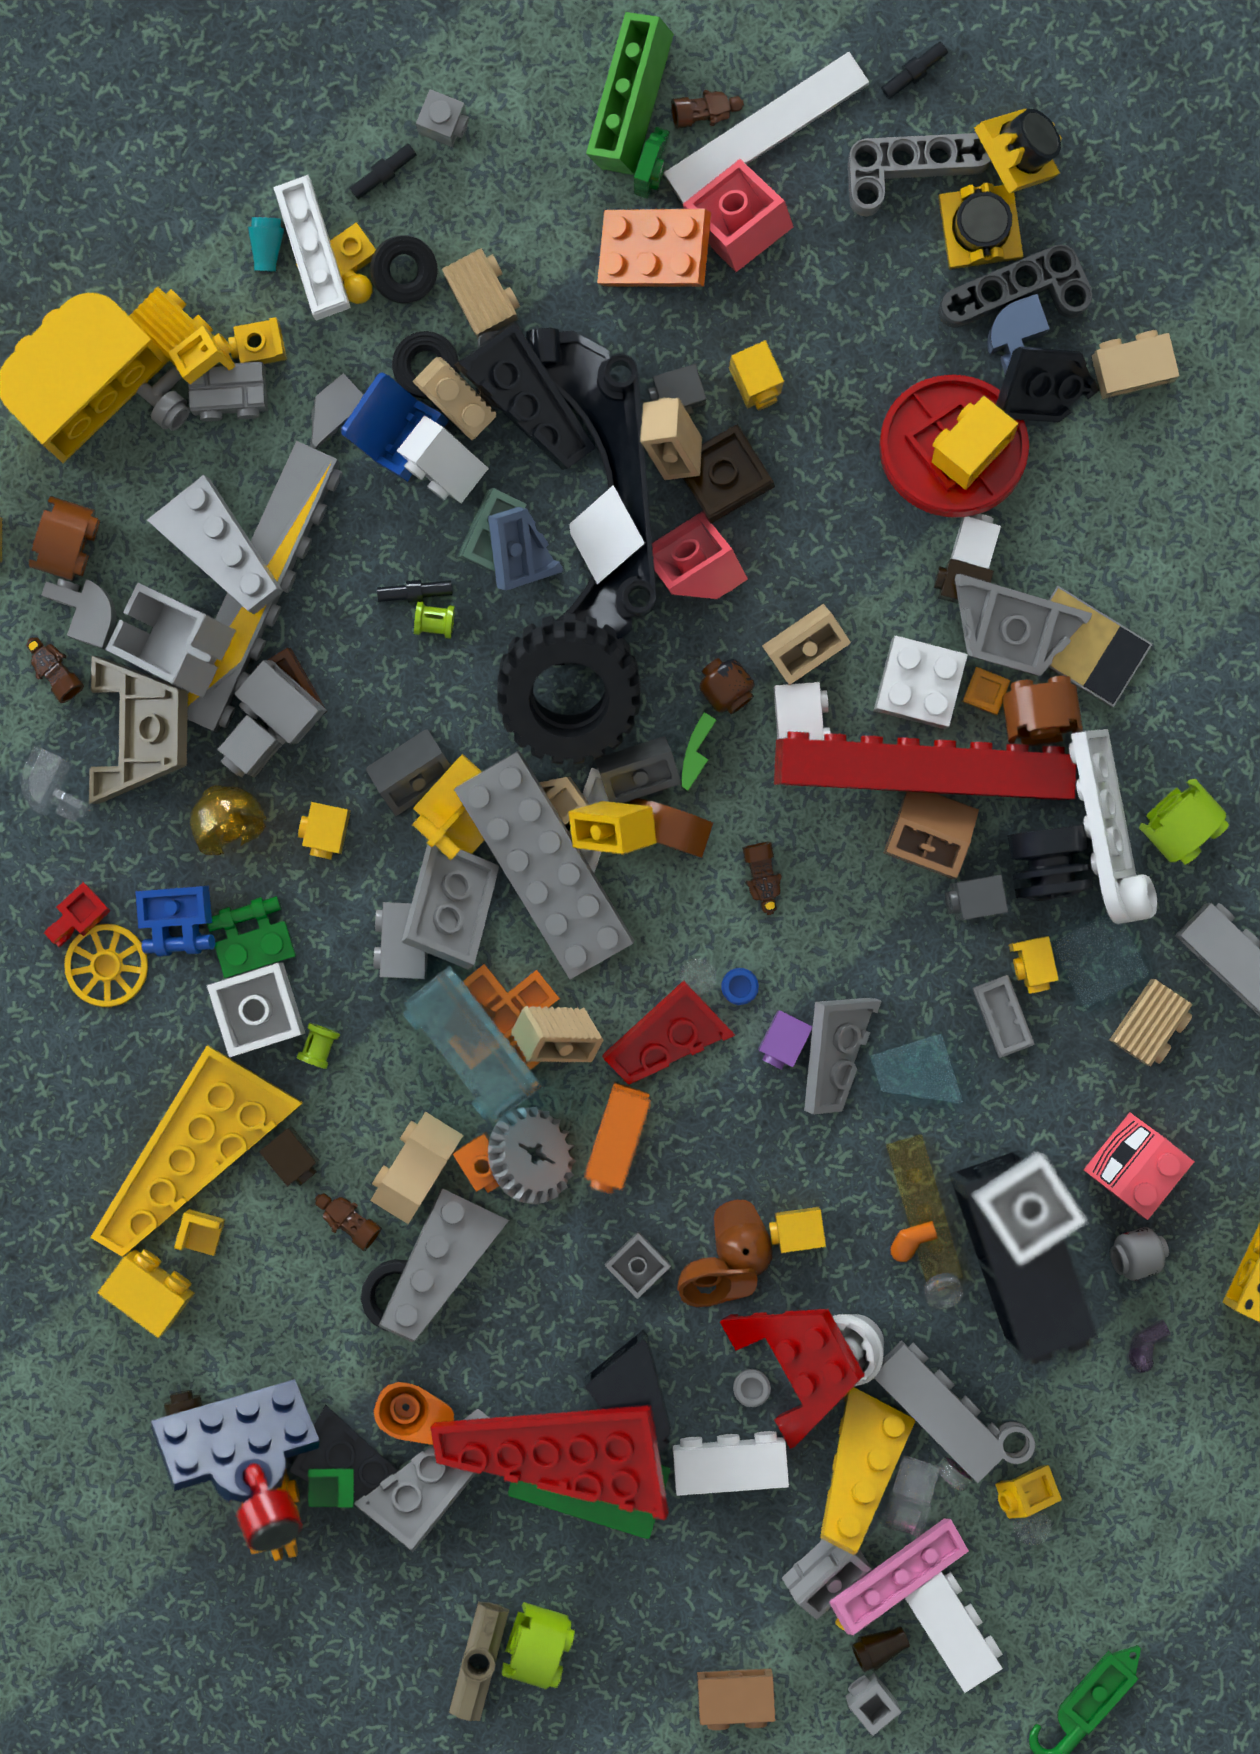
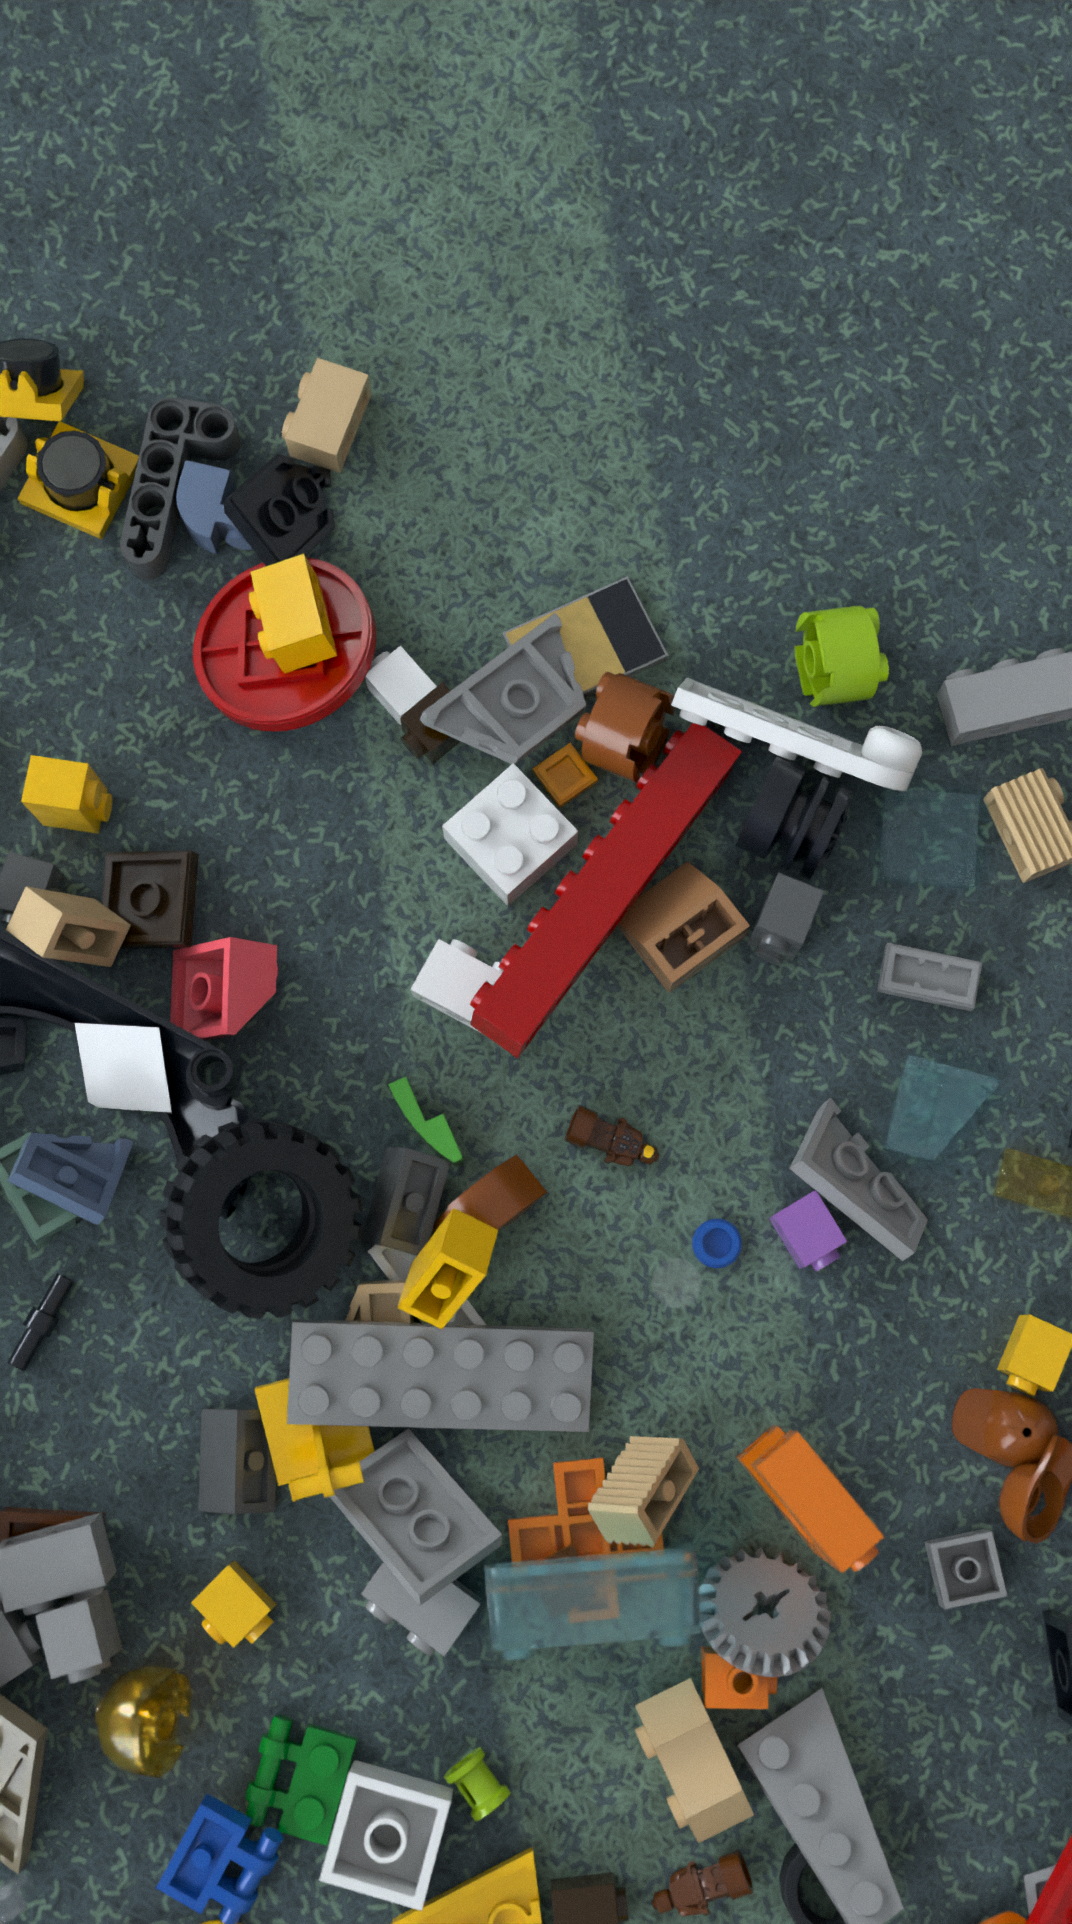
camera: 55 degrees left, 10 degrees down
(434, 620) = (86, 1320): lime bush -> none
(670, 1031) = (719, 1357): red wing -> none
(726, 685) = (376, 1042): reddish brown head -> none
(806, 644) = (389, 927): tan brick -> none
(1035, 963) = (893, 906): yellow brick -> none

